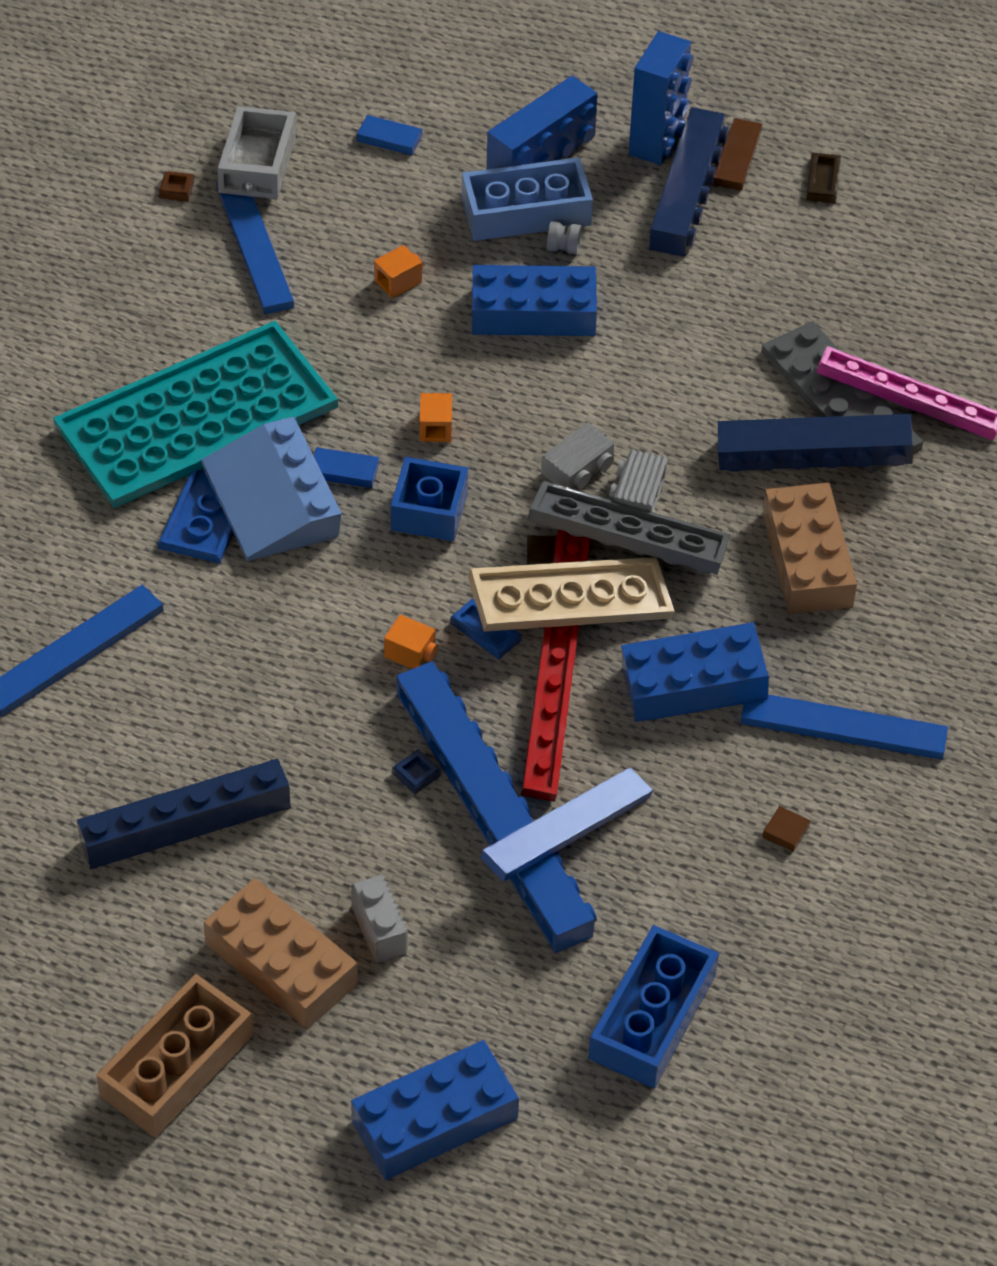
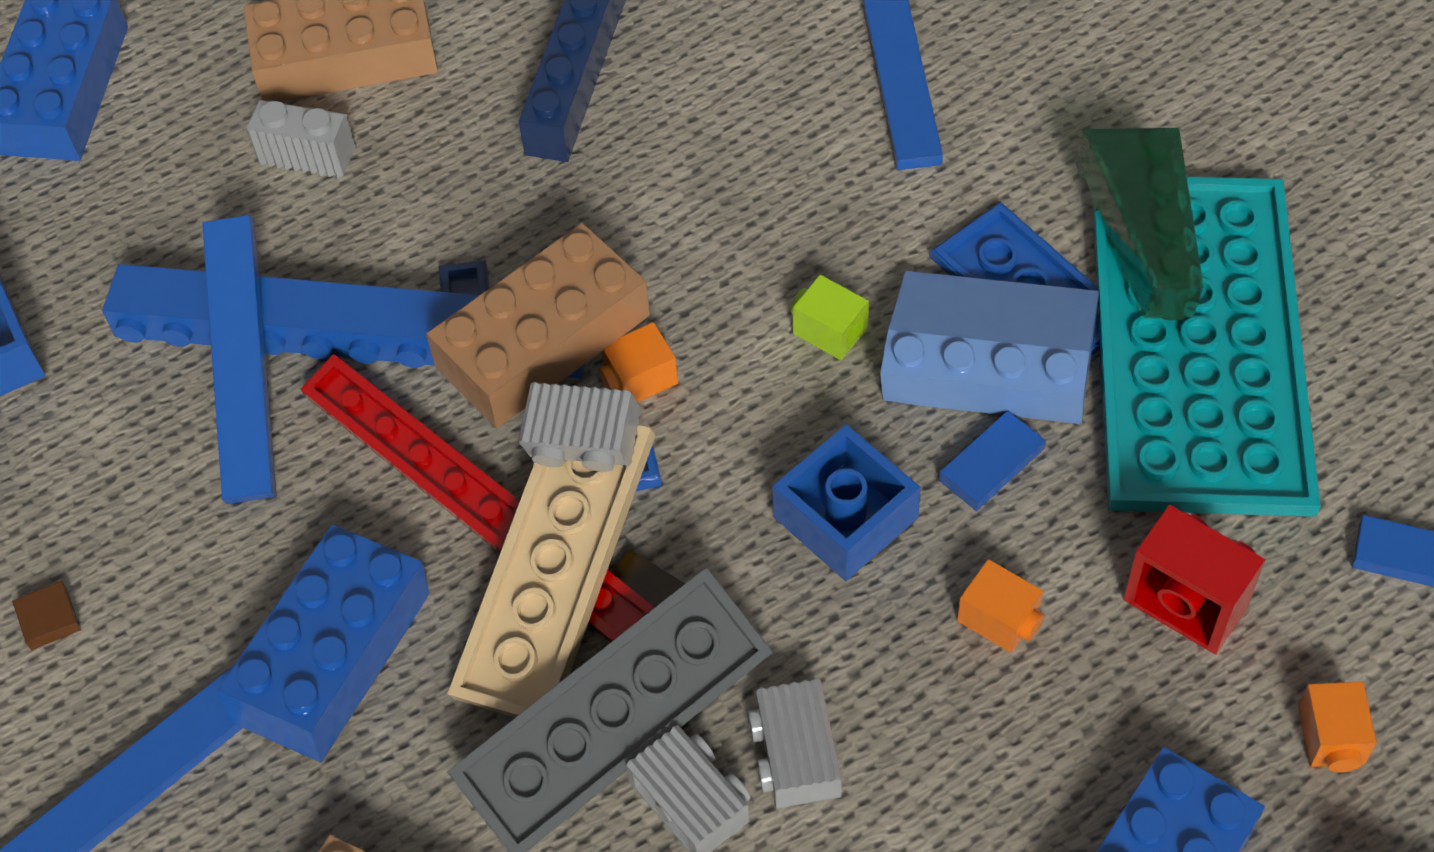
camera: 130 degrees right, 5 degrees up
(139, 446) = (1146, 205): none -> clear green wedge
(308, 573) = (829, 316): none -> lime brick
(365, 339) = (1193, 578): none -> red brick
(438, 669) = (539, 324): none -> medium nougat brick
(499, 590) = (580, 426): none -> light grey brick

